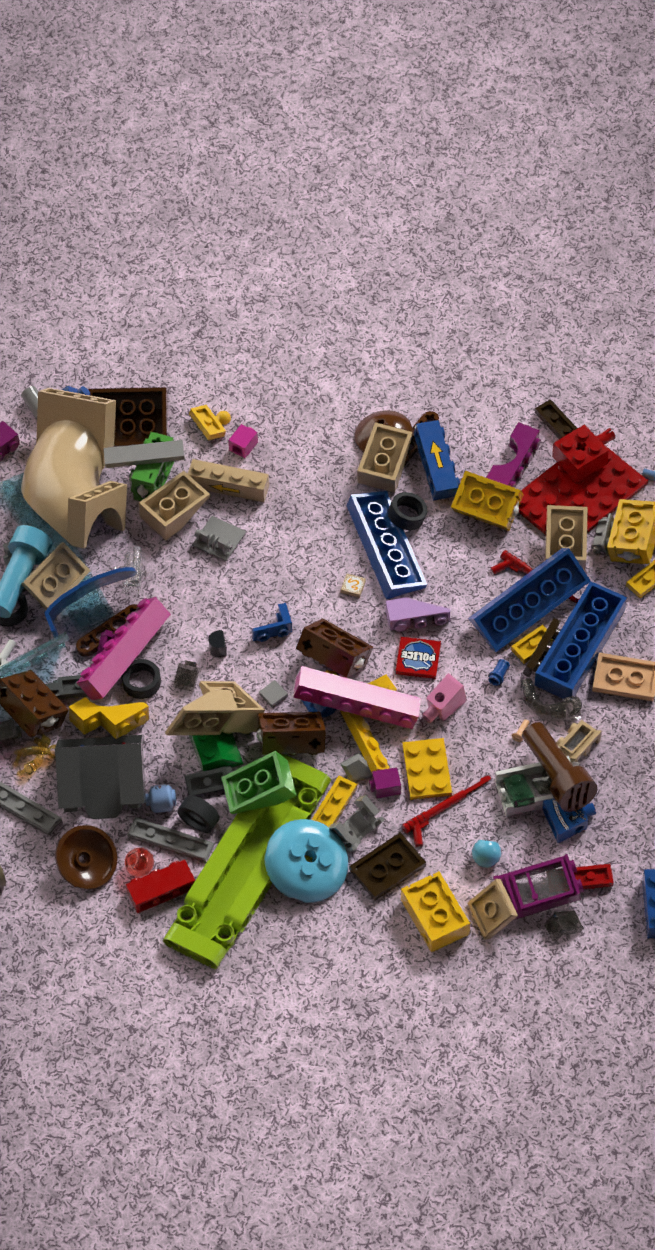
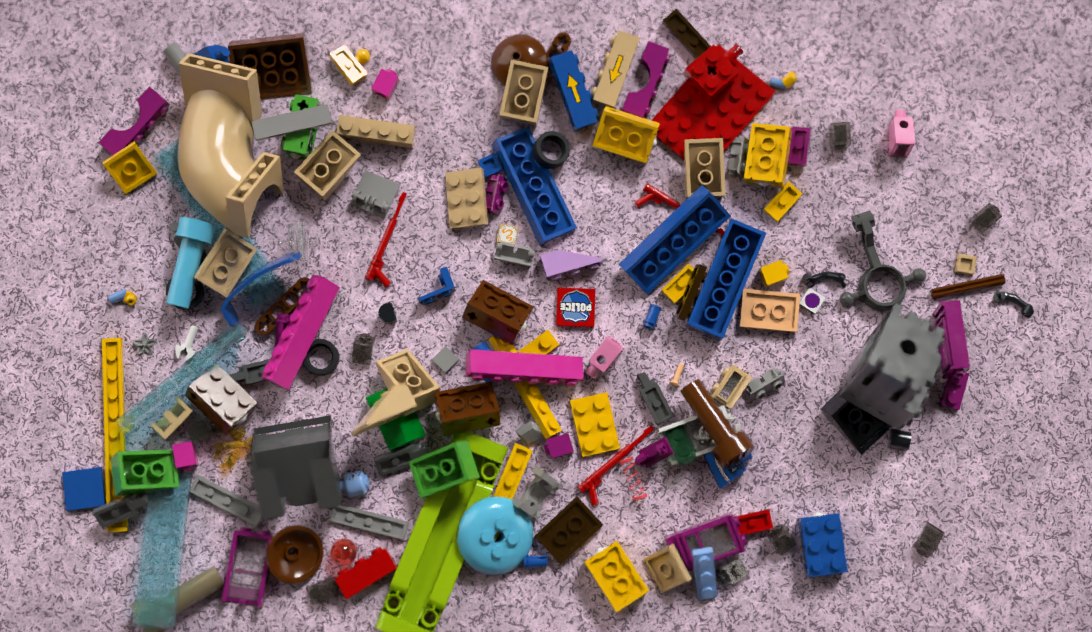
camera: 10 degrees left, 25 degrees up
(32, 870) = (247, 567): none -> clear door
(111, 900) = (323, 591): none -> clear smoke bracket
(115, 719) = (303, 405): yellow arch -> none
(198, 814) = (391, 499): black tyre -> none
(213, 598) = (377, 263): none -> red piece
(314, 548) = (466, 198): none -> tan plate
(342, 522) = (490, 165): none -> blue tile
(347, 541) = (497, 186): none -> magenta hinge
(347, 894) = (535, 561): none -> blue pin
(365, 603) = (505, 253): none -> light grey hinge
(463, 806) = (622, 462): none -> coral piece
(483, 444) = (616, 69): none -> tan brick
(486, 853) = (656, 510): medium azure piece -> none
(489, 797) = (654, 453): none -> magenta hinge
(494, 748) = (654, 399): none -> dark grey hinge
(533, 915) = (704, 573): none -> light blue plate
(561, 711) = (718, 352): clear smoke piece -> none
(620, 745) = (772, 381): none -> light grey hinge
(621, 894) = (781, 539): none -> clear smoke bracket
(633, 641) = (774, 273): none -> yellow brick

